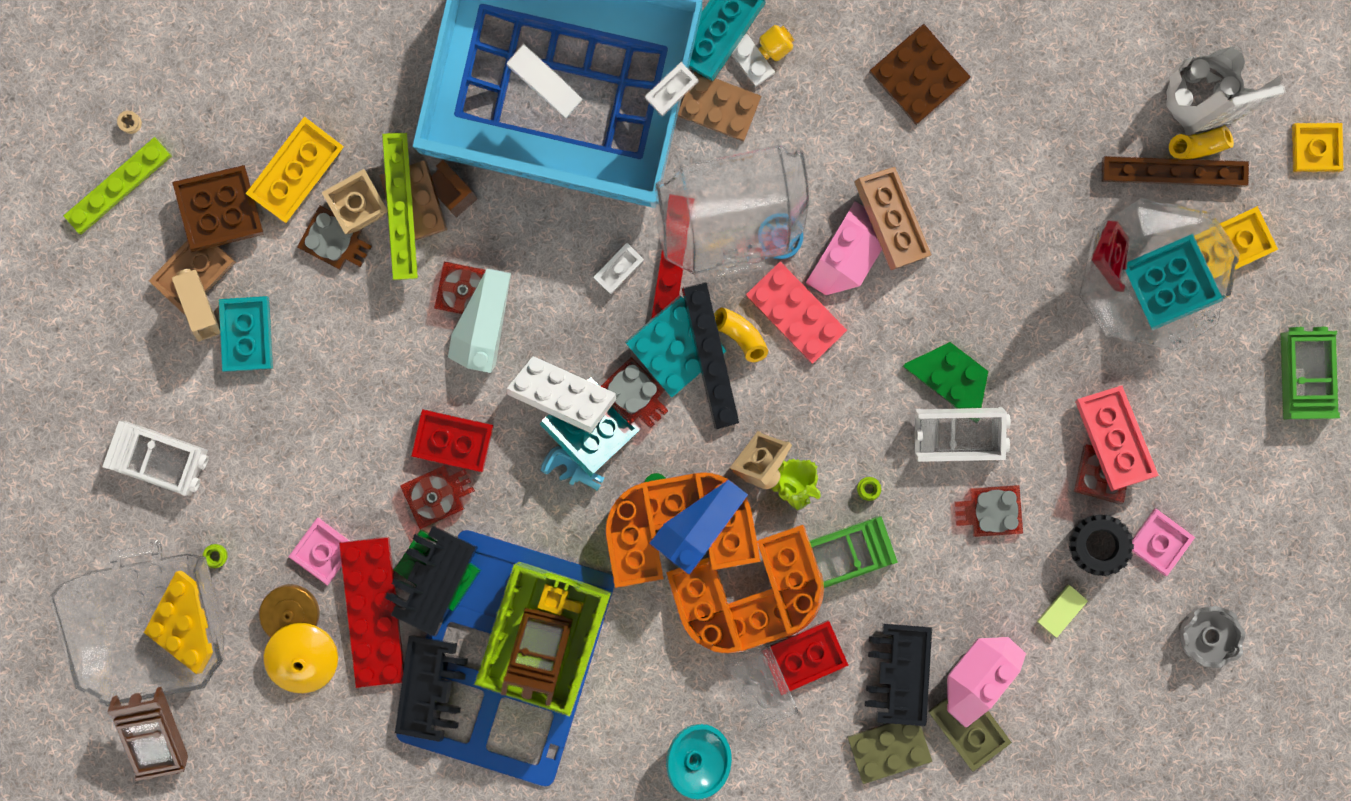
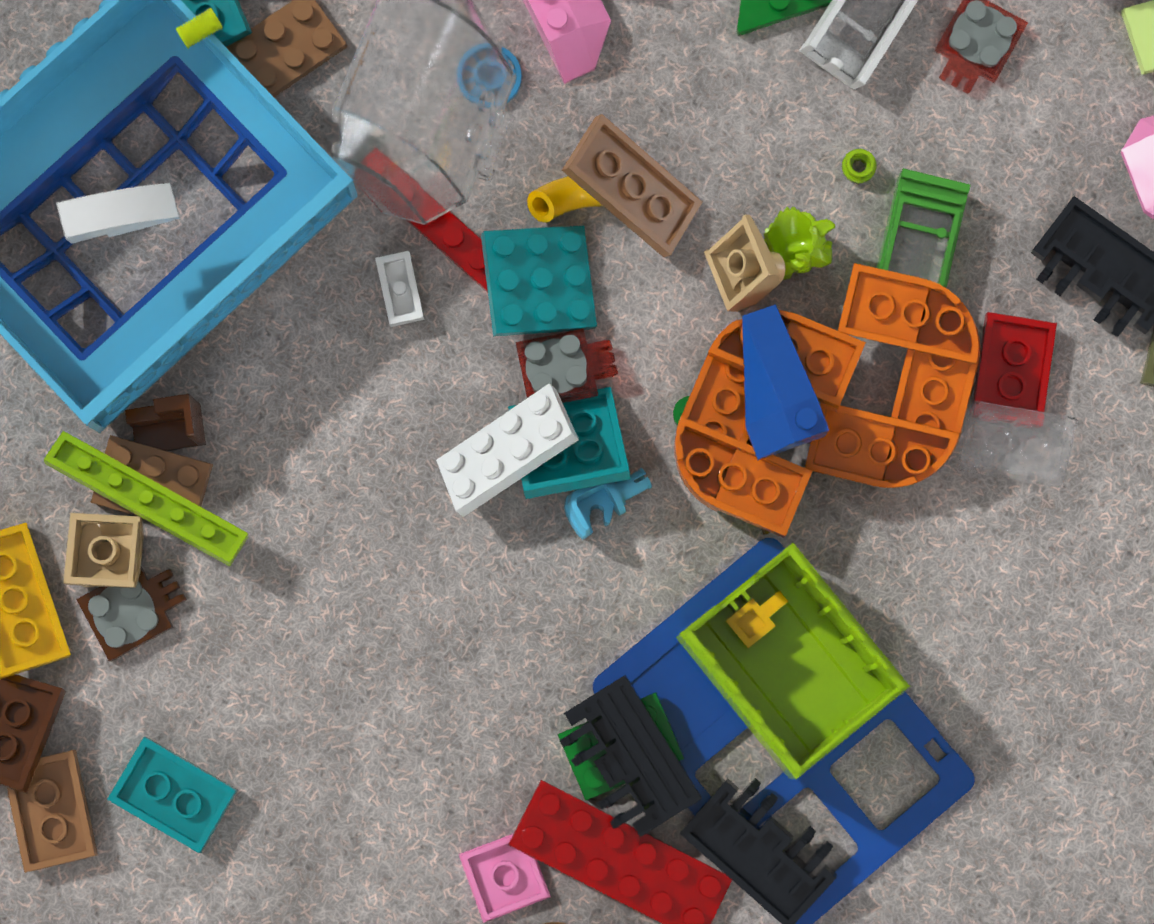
camera: 55 degrees left, 5 degrees down
(196, 304) = (95, 828): tan slope -> none
(436, 495) = (528, 688): clear red piece -> none
(452, 440) = (474, 624): red plate -> none
(457, 287) = (303, 487): clear red piece -> none
(480, 327) = (359, 500): light aqua wedge -> none
(537, 653) = (807, 679): reddish brown door -> none
(671, 89) = (231, 69): white plate -> none
(683, 56) = (199, 28): none -> neon yellow piece
(709, 765) = (1067, 563): teal dish -> none
(710, 355) = (577, 244): black plate -> none
(765, 364) = (632, 185): none -> medium nougat plate
(796, 312) = (561, 115): coral plate -> none

